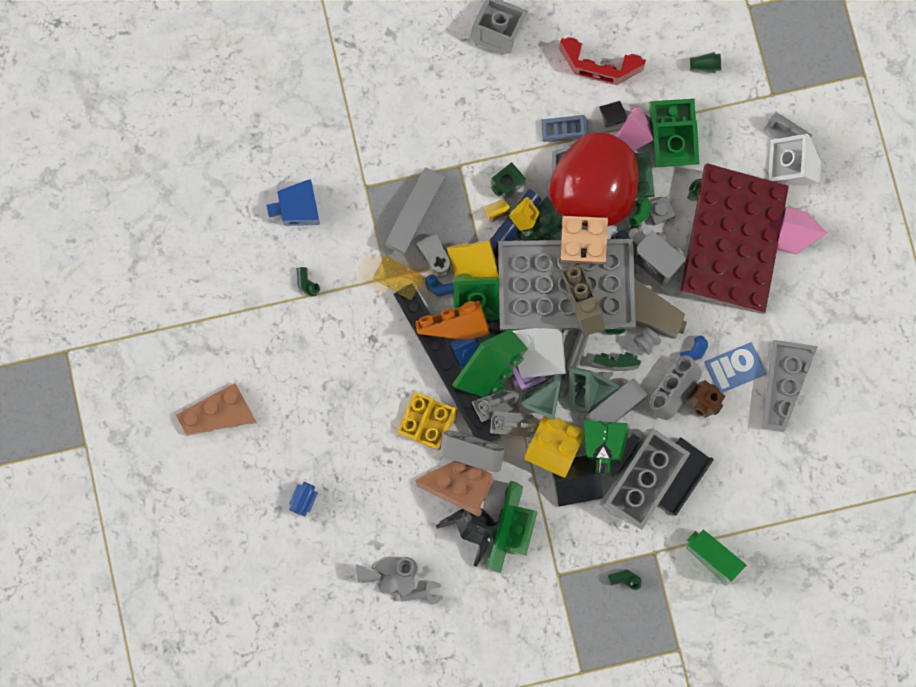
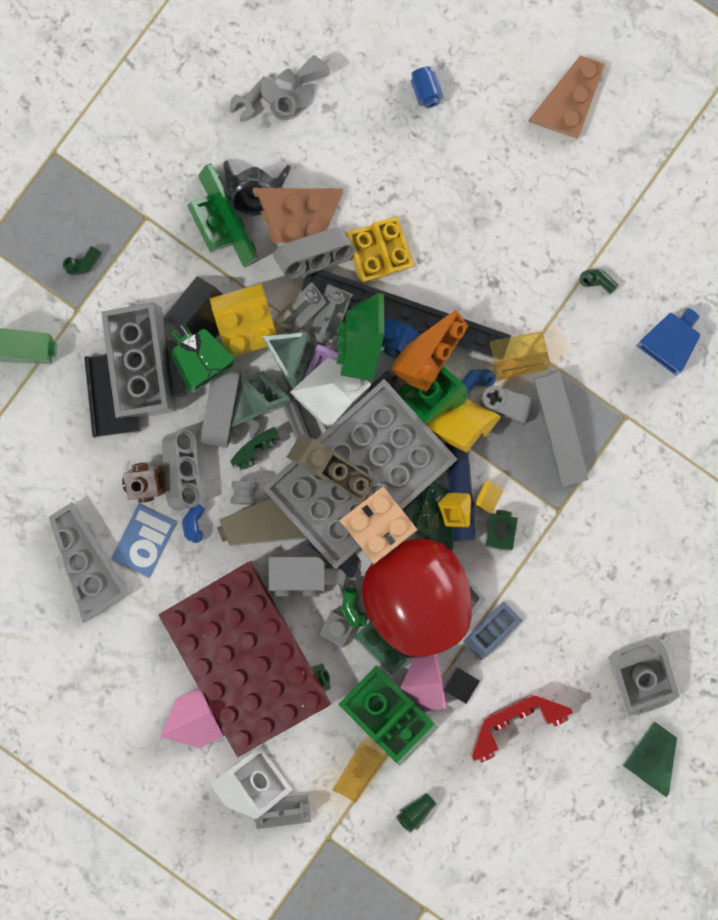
camera: 140 degrees right, 5 degrees up
(721, 116) = (358, 772): none -> clear yellow panel

